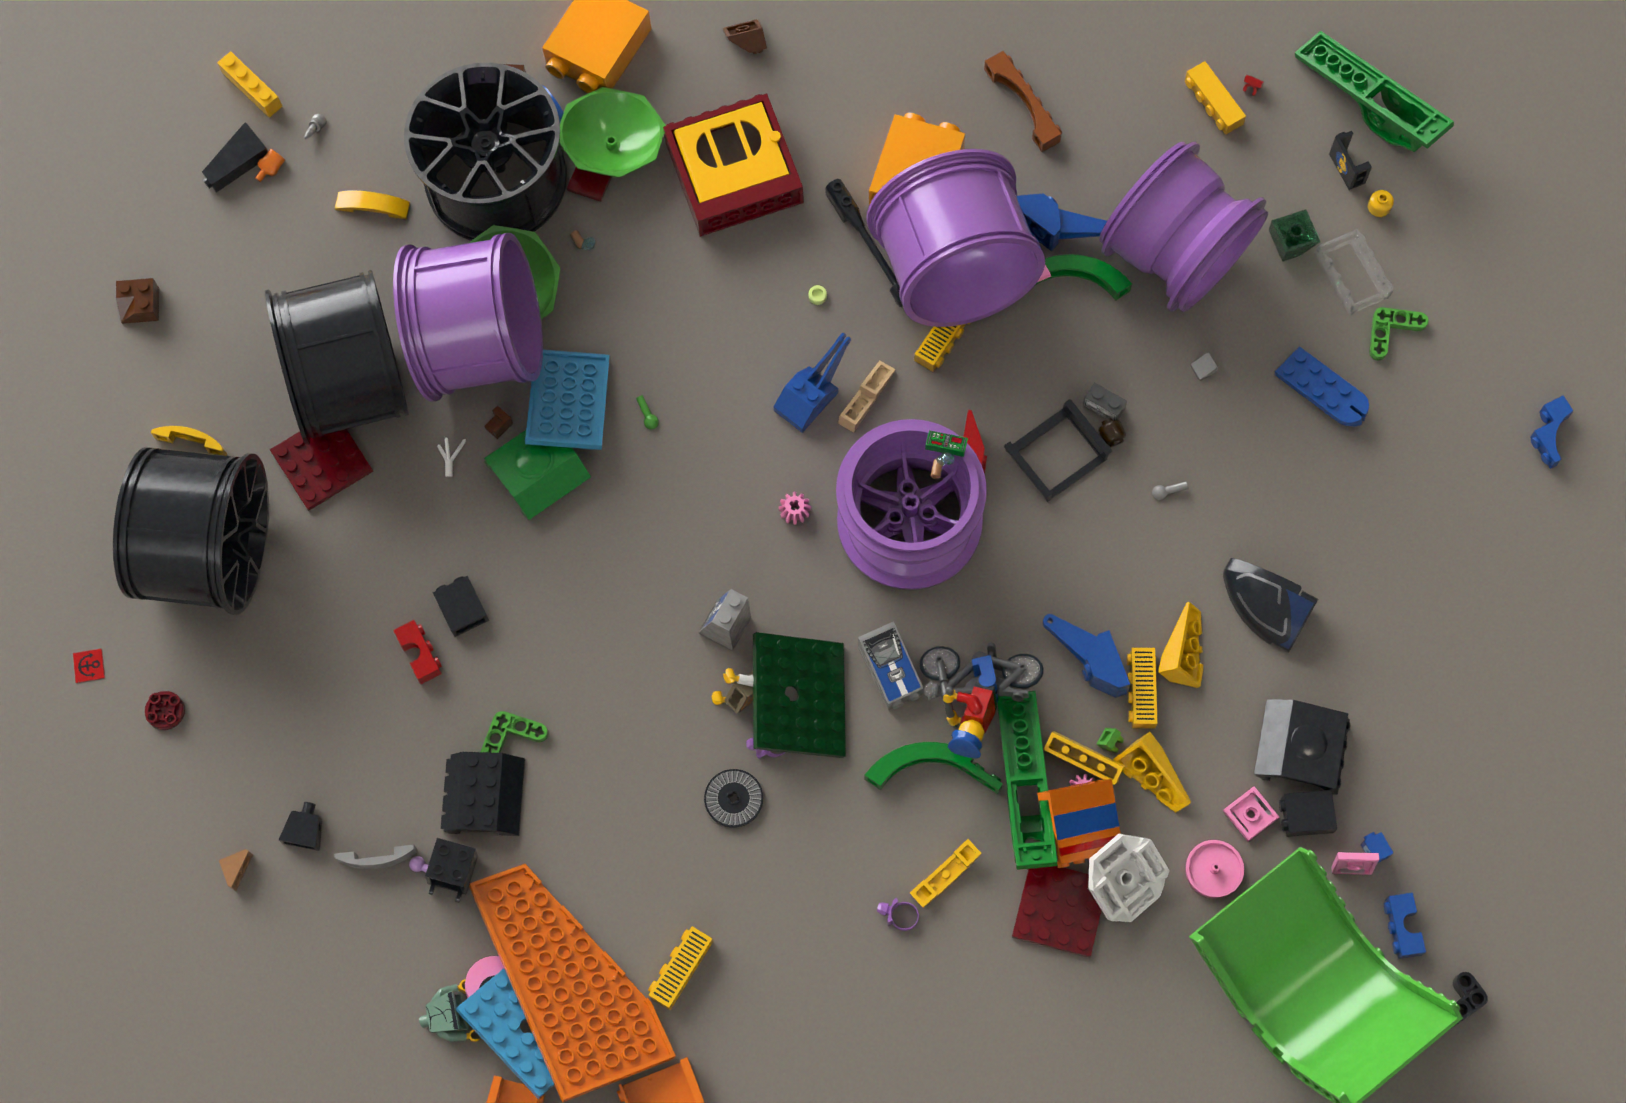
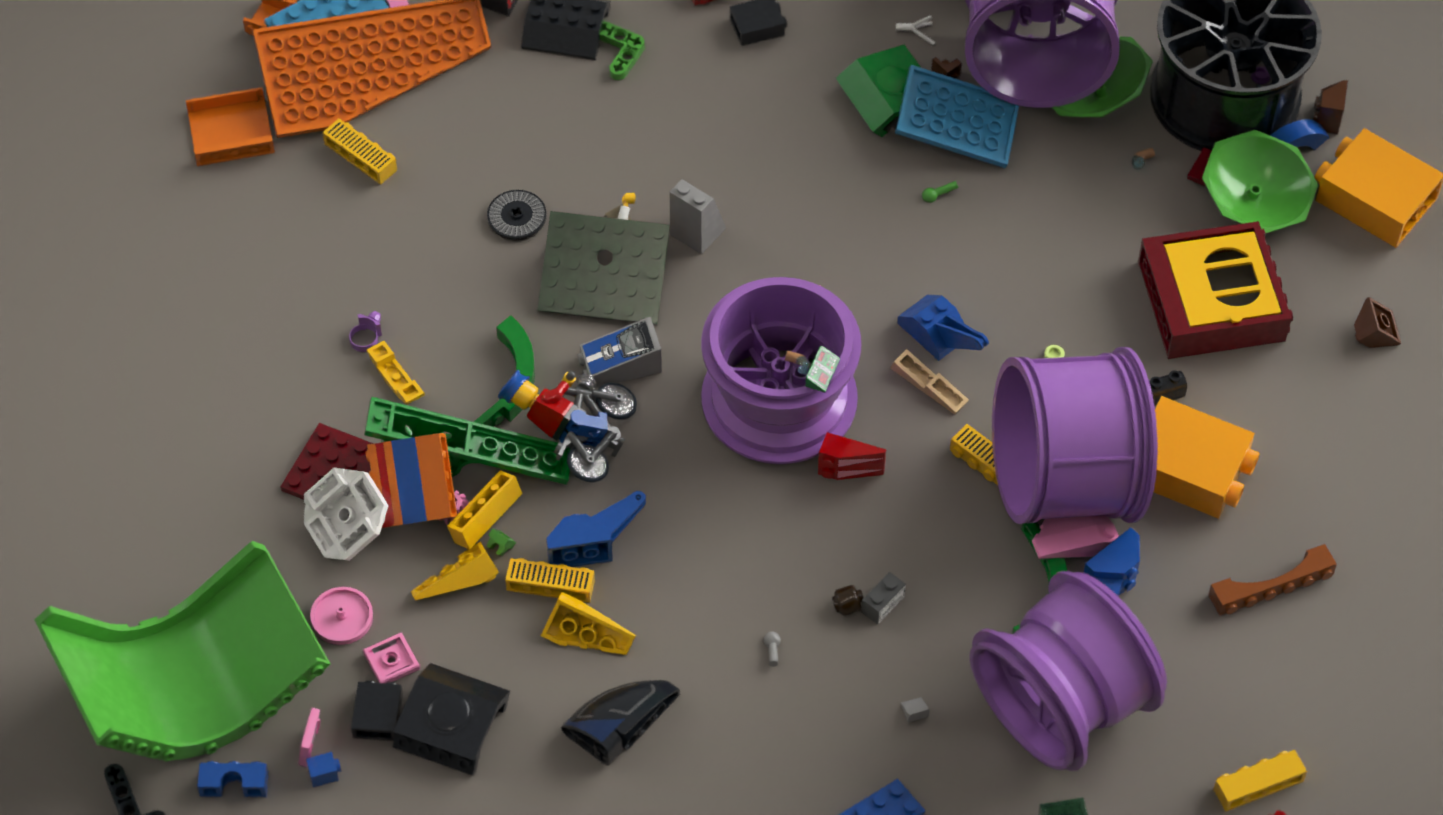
camera: 95 degrees right, 15 degrees down
(1085, 429) = (816, 510): black piece -> none

